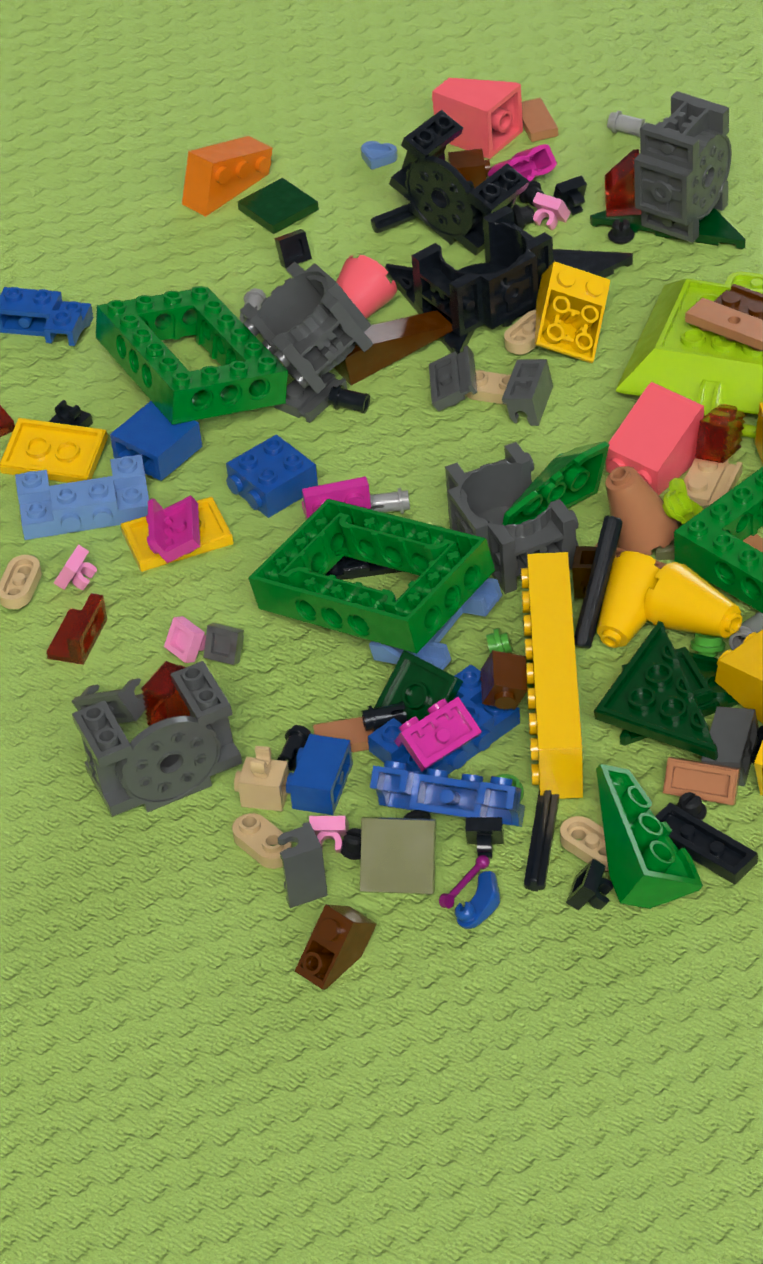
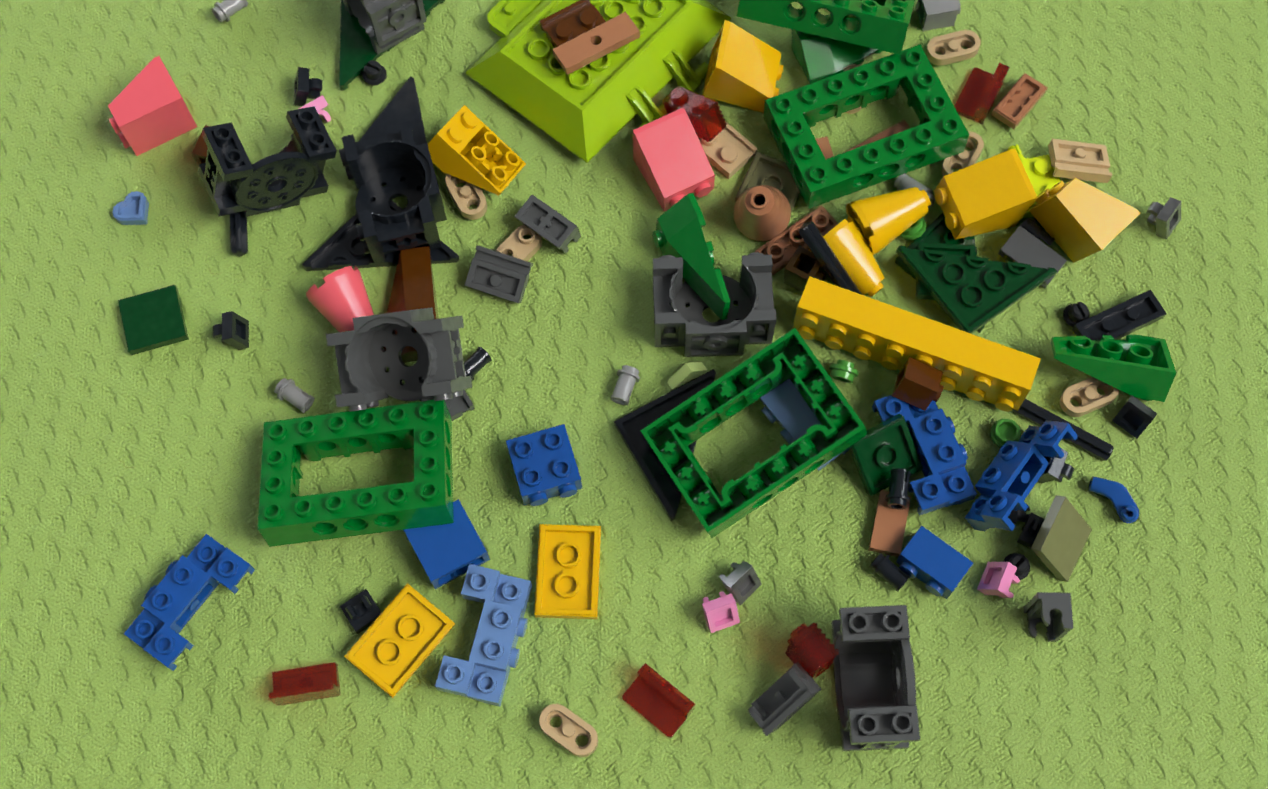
camera: 70 degrees left, 25 degrees up
(74, 569) = (578, 676): bright pink tile -> none
(173, 529) = (583, 570): dark pink bracket -> none
(223, 172) = (83, 345): orange wedge -> none
(255, 837) = (981, 634): tan plate -> none
(262, 781) = (926, 611): tan brick -> none
(334, 944) = (1128, 621): reddish brown slope -> none
(349, 491) = (620, 427): dark pink bracket -> none
(439, 733) = (957, 456): dark pink bracket -> none
(447, 900) = (1072, 482): magenta hinge -> none
(528, 195) = (278, 114): black piece -> none
(530, 162) = (248, 106): dark pink brick -> none
(537, 120) = (182, 69): nougat tile -> none
(621, 187) = (340, 41): clear red slope -> none
(677, 502) = (775, 176): lime plate -> none
(704, 779) = (1058, 294): nougat tile -> none

